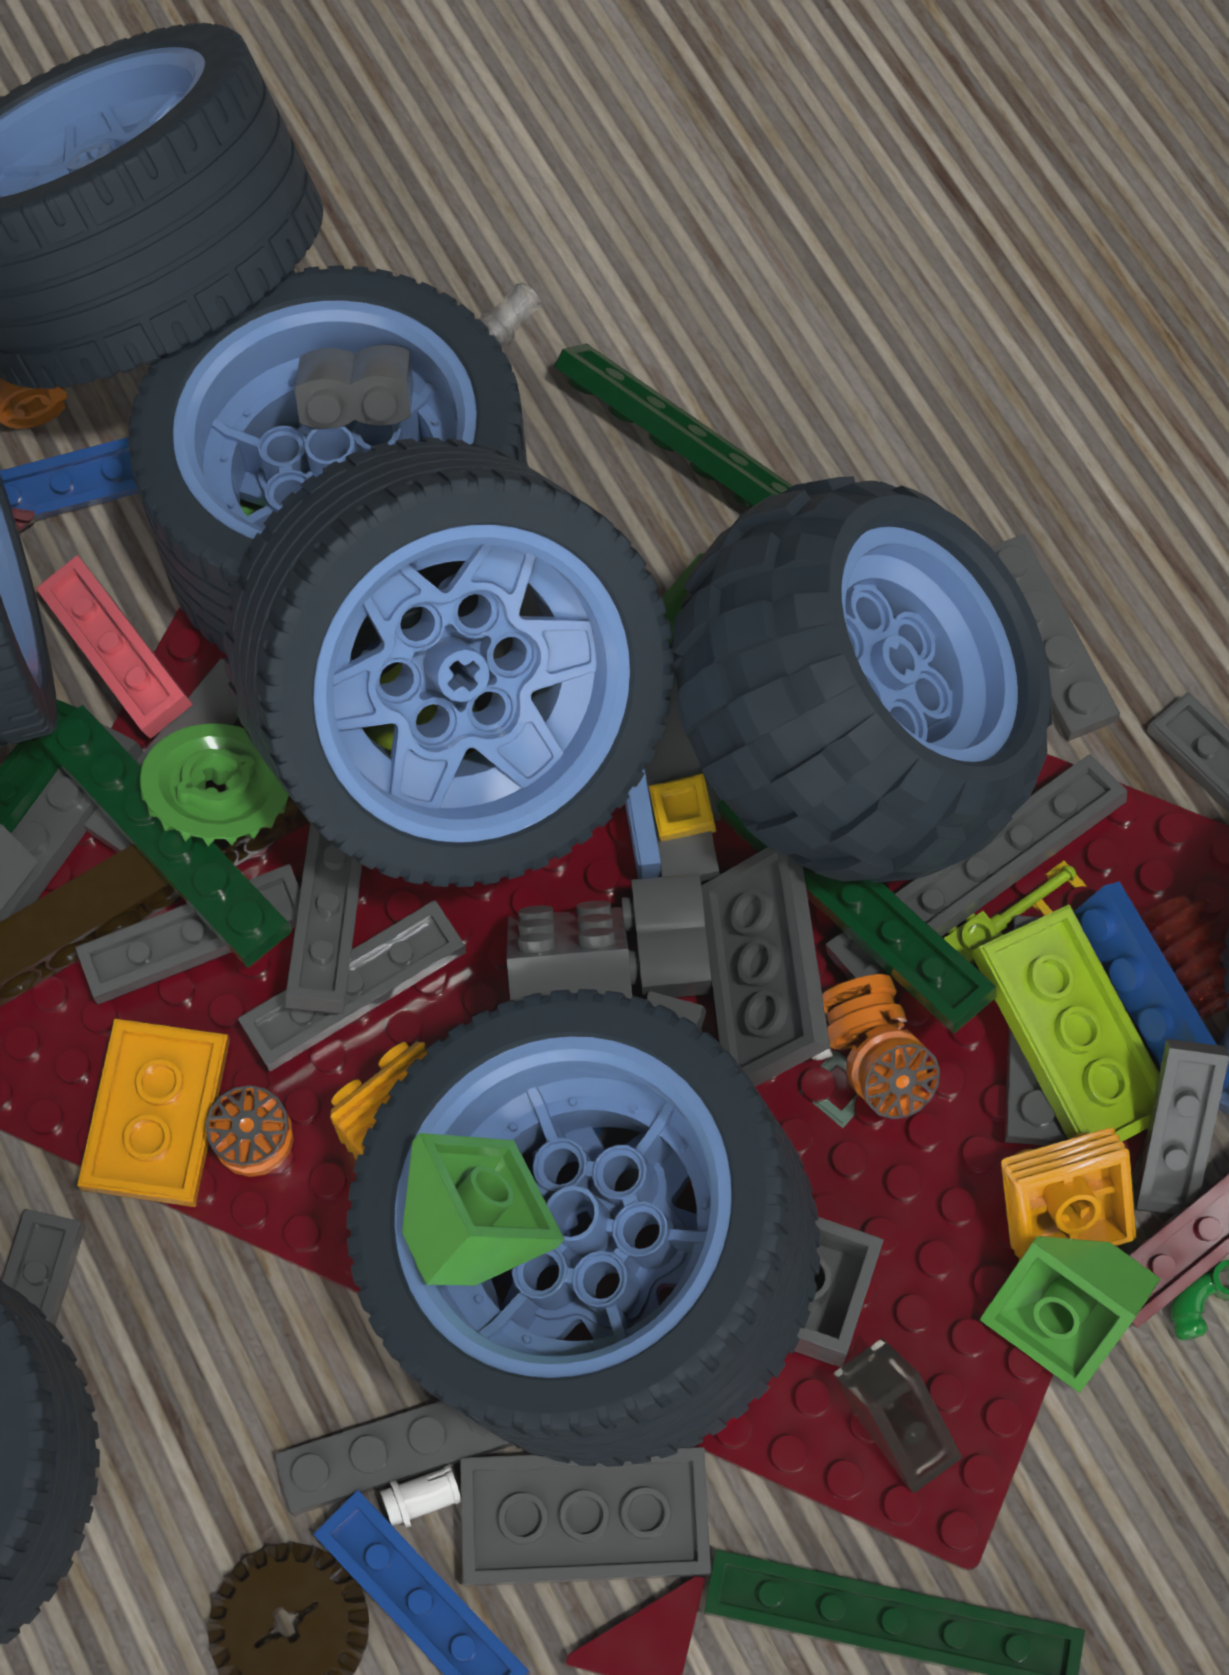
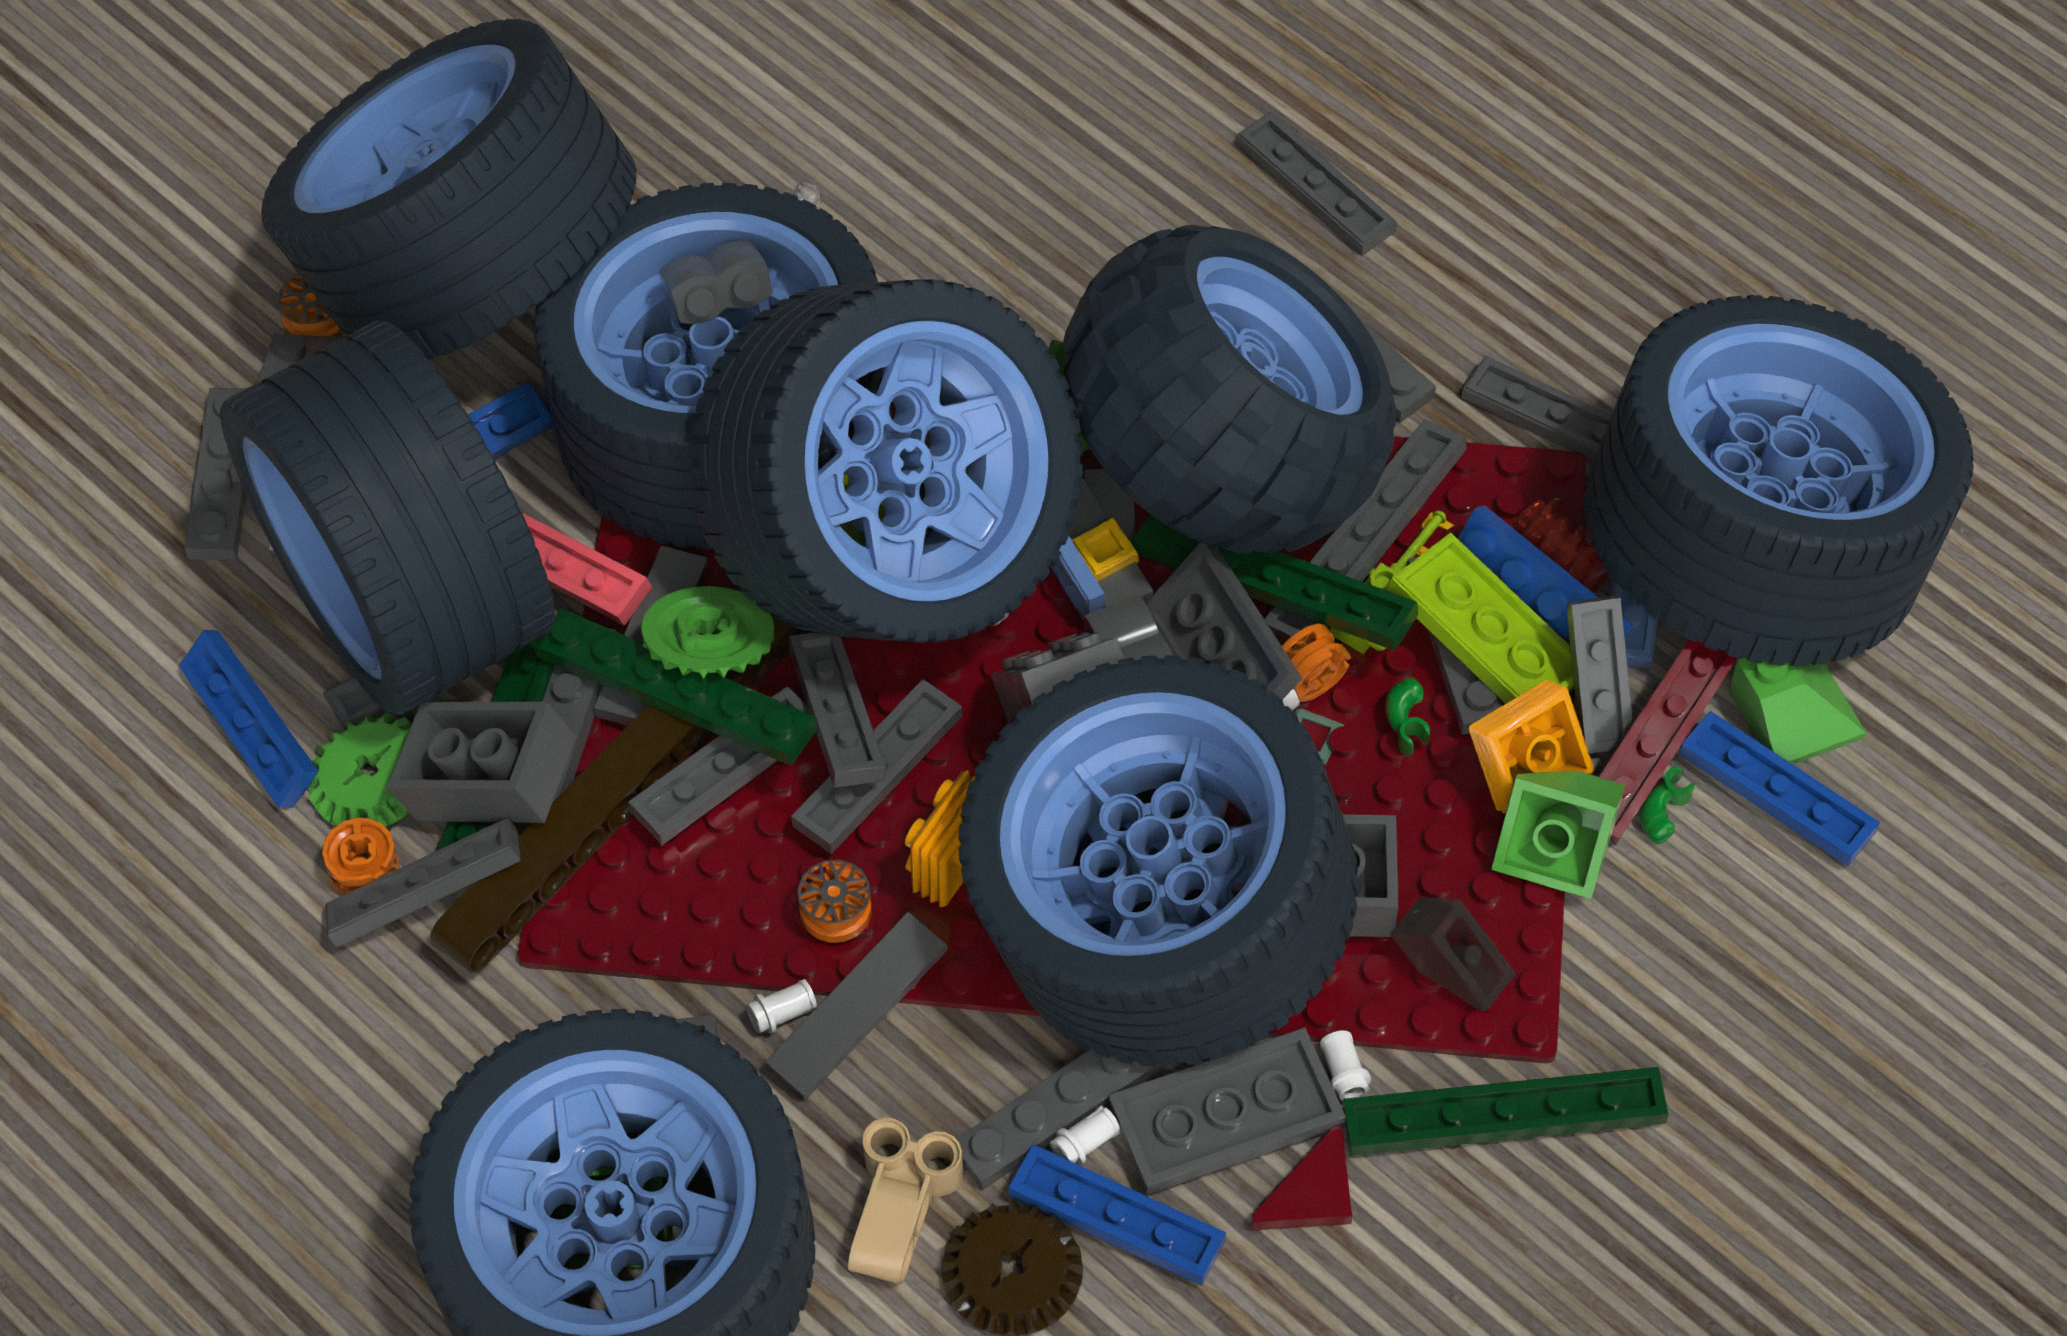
camera: 20 degrees left, 10 degrees down
(153, 1112) = (744, 914): light orange tile -> none
(155, 1231) = (781, 1006): none -> white pin
(190, 1509) = (900, 1196): none -> tan piece
(232, 1259) = (856, 1006): none -> dark grey tile
(473, 1209) = (1071, 855): bright green slope -> none
(669, 425) = (972, 264): dark green plate -> none
(734, 1506) = (1347, 1074): none -> white pin
(894, 1091) = (1352, 699): orange wheel -> none
(952, 1081) = (1397, 707): none -> green arm
(1073, 434) = (1316, 183): none -> dark grey tile

